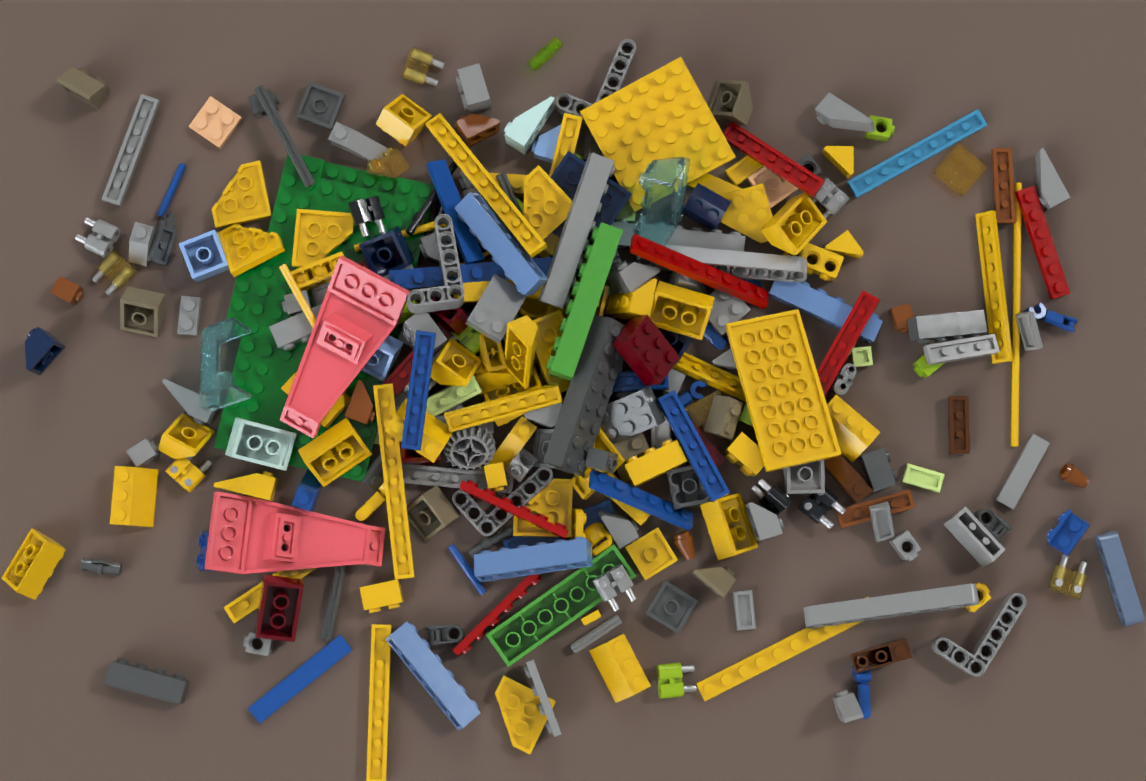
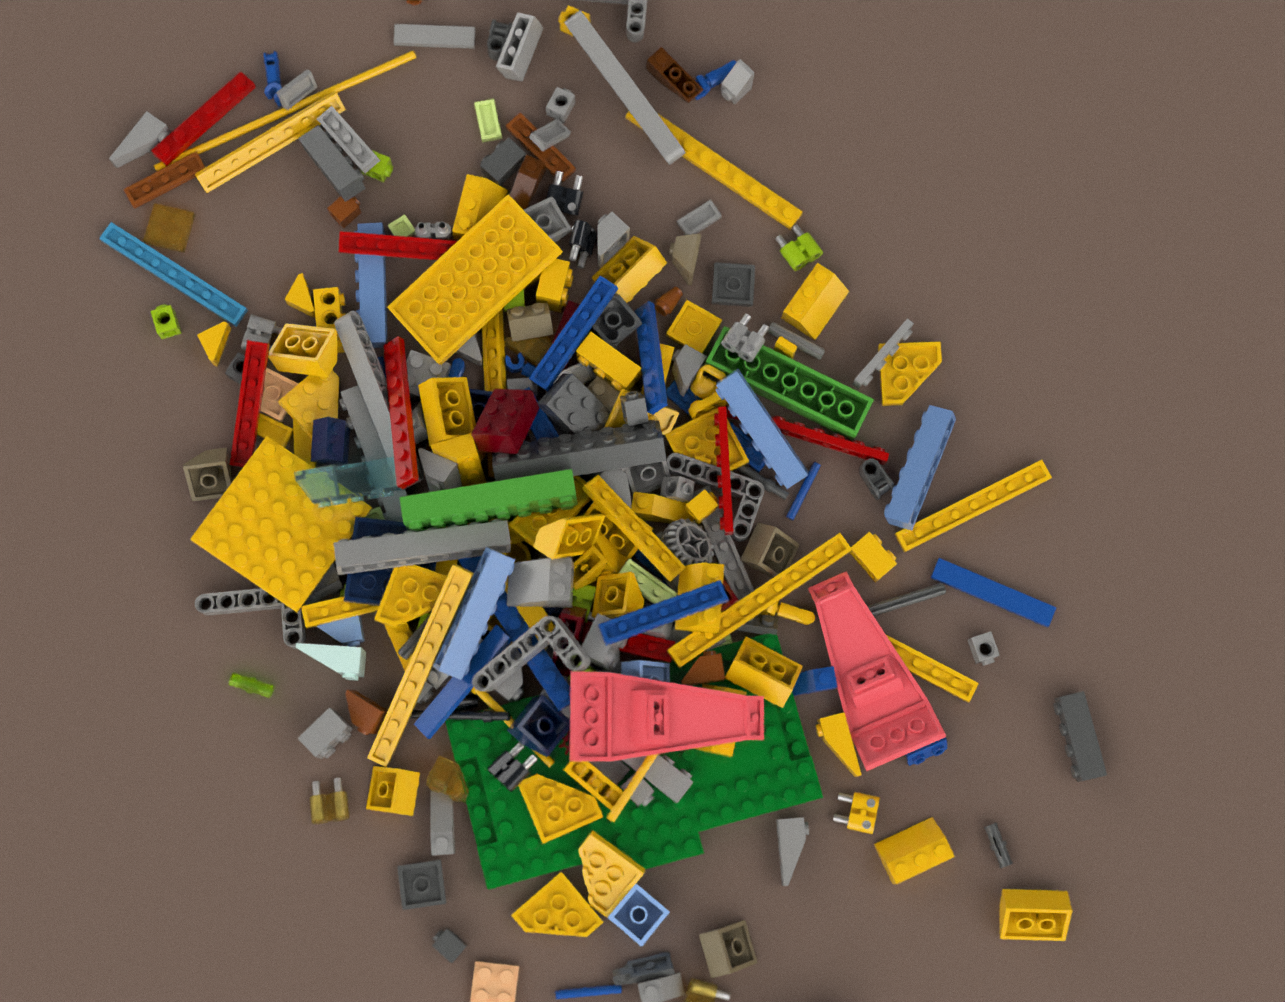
camera: 120 degrees left, 5 degrees down
(143, 452) = (866, 865): light grey brick -> none
(184, 438) = (830, 831): yellow slope -> none
(189, 315) = (706, 899): light grey plate -> none
(218, 387) = (769, 825): clear light blue windscreen -> none
(260, 444) = (796, 749): light aqua slope -> none
(279, 608) = (941, 644): dark red brick -> none
(284, 136) = (473, 900): dark grey axle -> none
(841, 115) = (170, 364): light grey slope -> none
(958, 425) = (420, 111): reddish brown plate -> none

